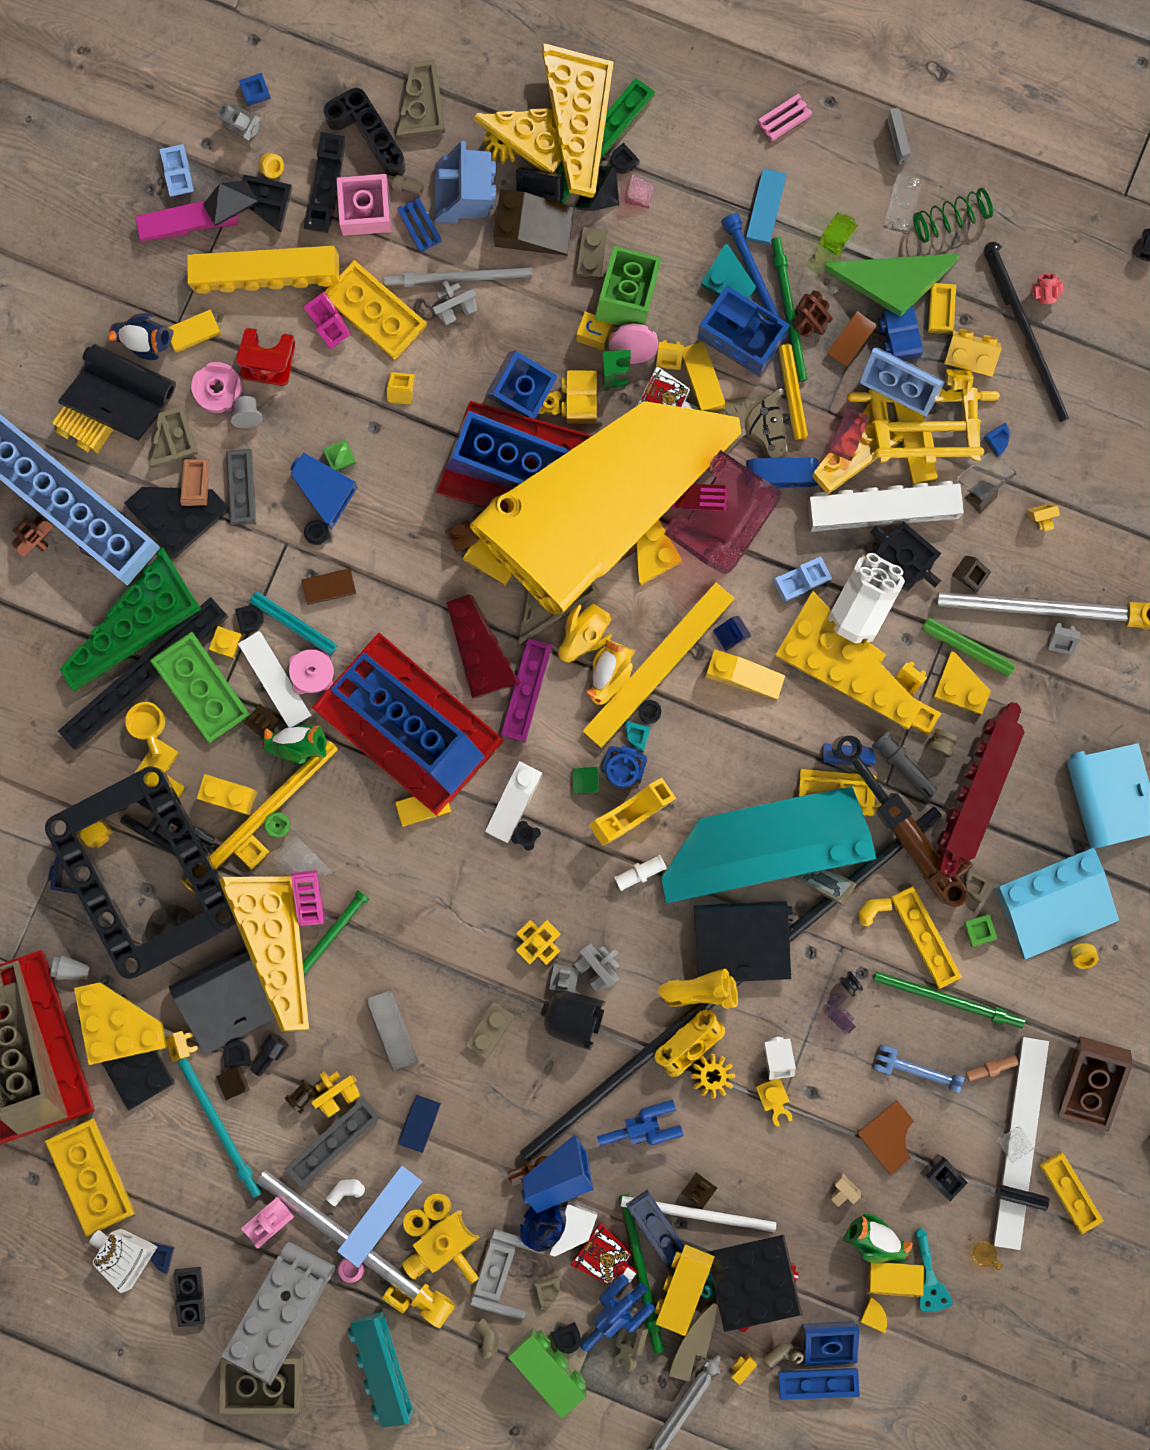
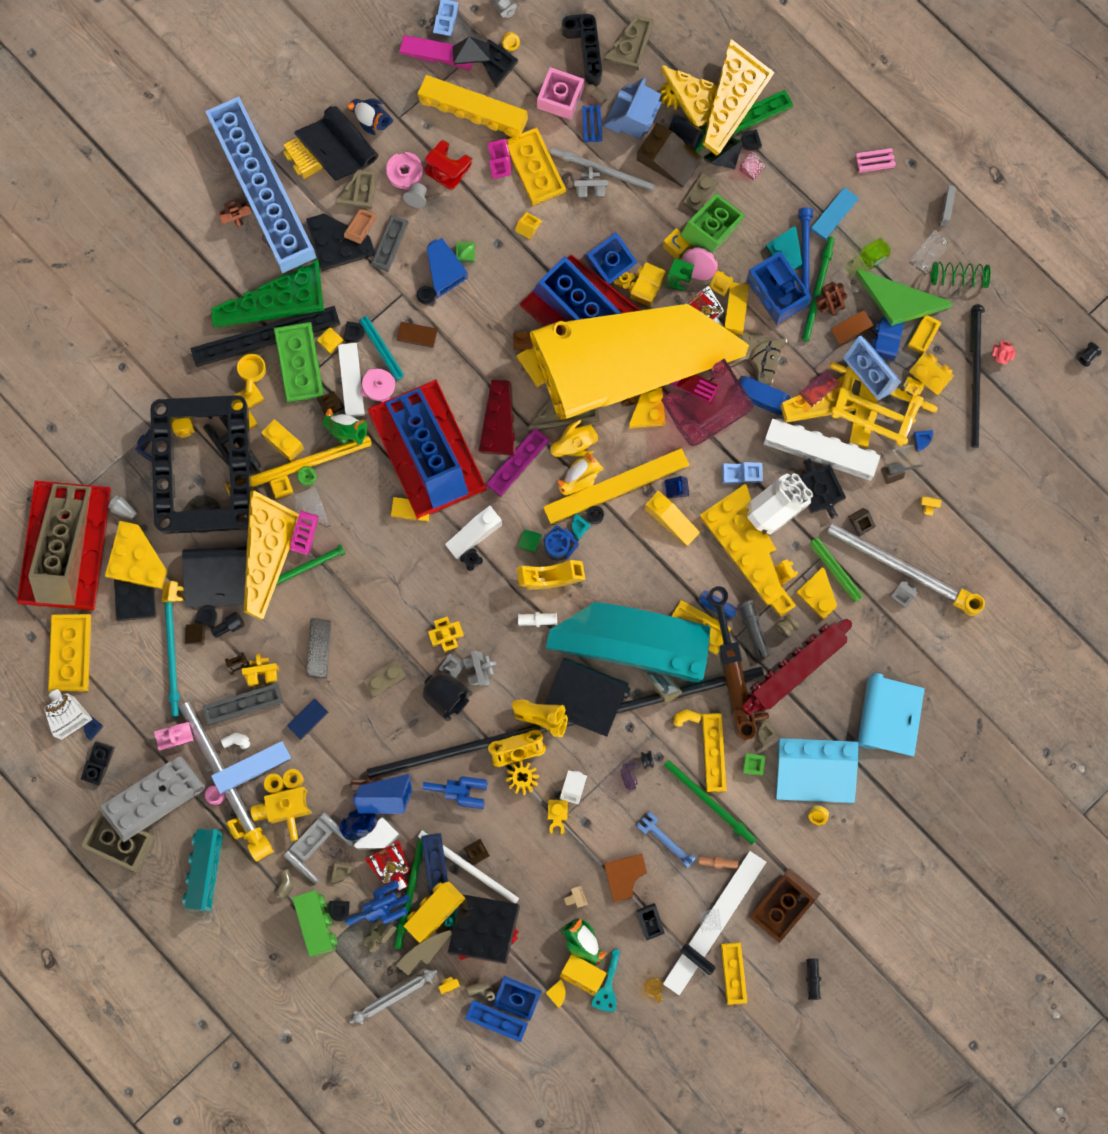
camera: 20 degrees right, 5 degrees down
(194, 331) = (407, 127): yellow tile -> none
(324, 190) = (536, 76): black slope -> none
(792, 392) = (794, 345): yellow axle -> none

